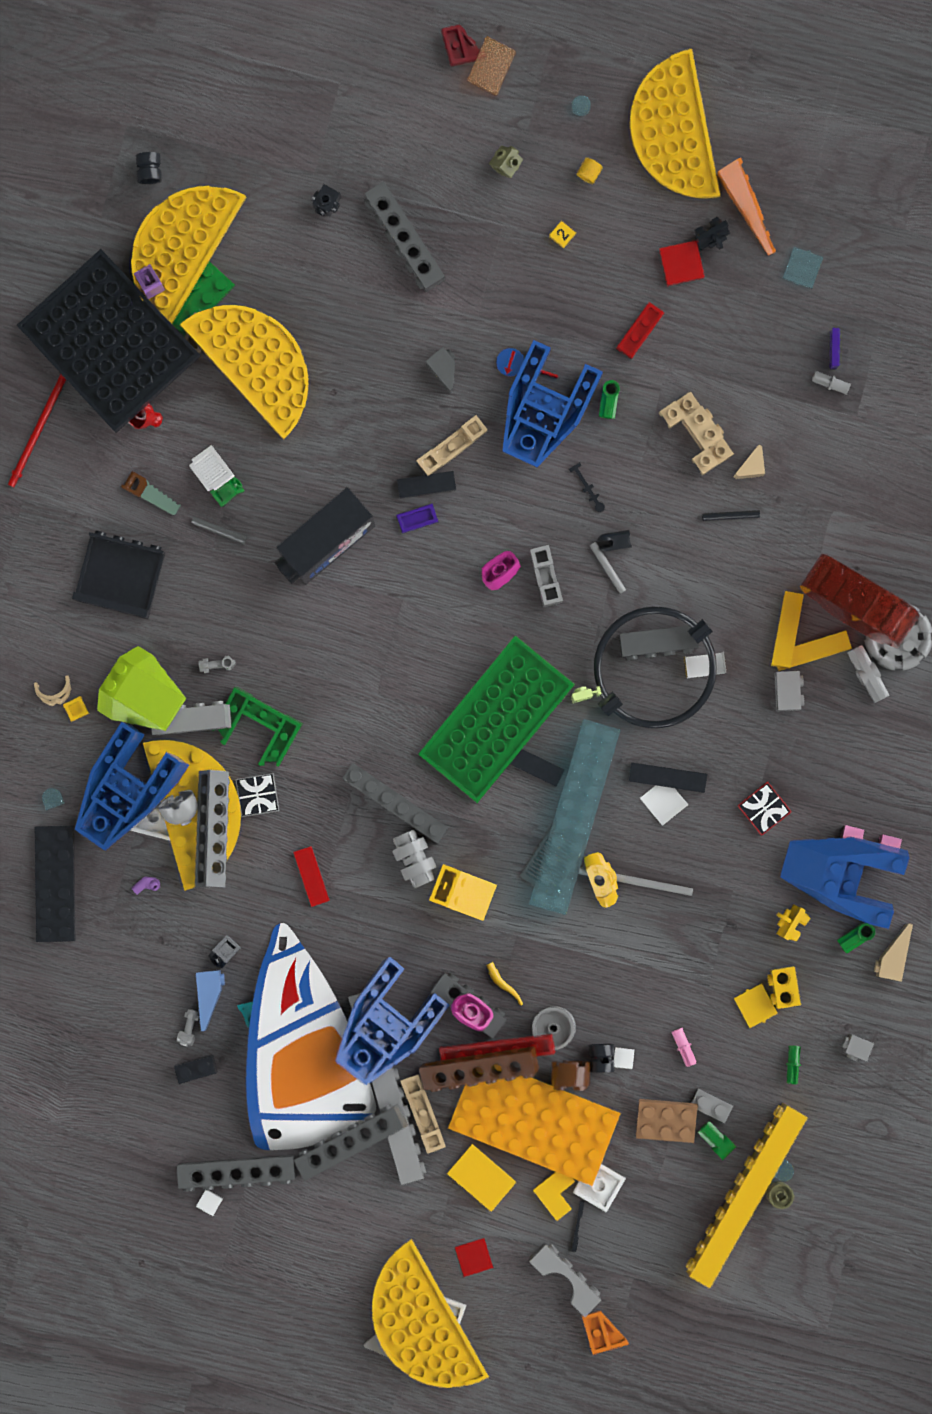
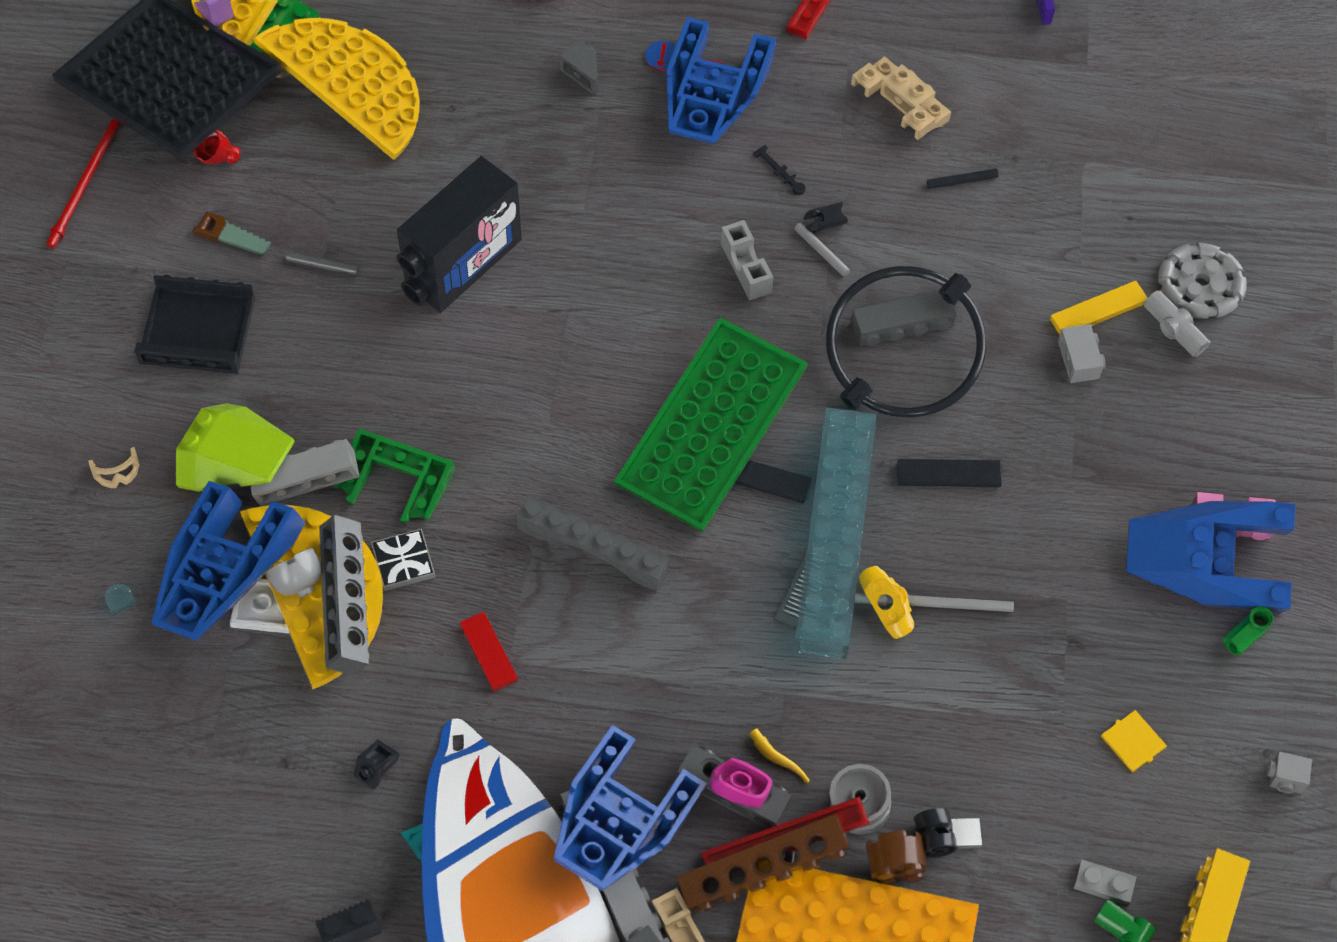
camera: 10 degrees left, 25 degrees down
(55, 884) = (127, 707): black plate -> none
(76, 708) = (147, 486): yellow tile -> none
(146, 883) = (257, 688): medium lavender arm -> none
(185, 1037) = (331, 887): light grey bar -> none
(209, 990) = (359, 820): medium blue slope -> none
(211, 469) = (306, 195): white window -> none
(227, 663) = (347, 407): light grey bar -> none
(228, 491) = (328, 217): green bracket -> none
(411, 852) = (633, 612): light grey piece -> none
(417, 518) = (573, 224): dark purple tile -> none
(426, 484) = (579, 187): black tile -> none
(452, 446) = (608, 143): tan slope -> none
(463, 892) = (700, 640): yellow slope -> none
(500, 570) = (688, 263): dark pink piece -> none
(582, 694) = (822, 381): yellowish green plate -> none
(609, 401) = (788, 75): green piece -> none
(664, 803) = (950, 504): white sticker -> none
(666, 1120) = (1046, 909): medium nougat plate -> none
(684, 1047) = (1047, 806): bright pink axle -> none
(699, 665) = (964, 342): white sticker -> none
(752, 466) = (977, 123): tan slope -> none
(764, 808) = (1084, 494): tile -> none
(787, 630) = (1062, 287): yellow tile -> none
(789, 986) = (1174, 706): yellow brick -> none
(790, 920) = (1152, 622): yellow hips -> none
(793, 1065) = (1206, 808): green axle -> none
(831, 382) = (1049, 33): light grey axle -> none
(859, 602) = (1148, 227): clear red brick -> none
(893, 959) = (1306, 656): tan slope -> none

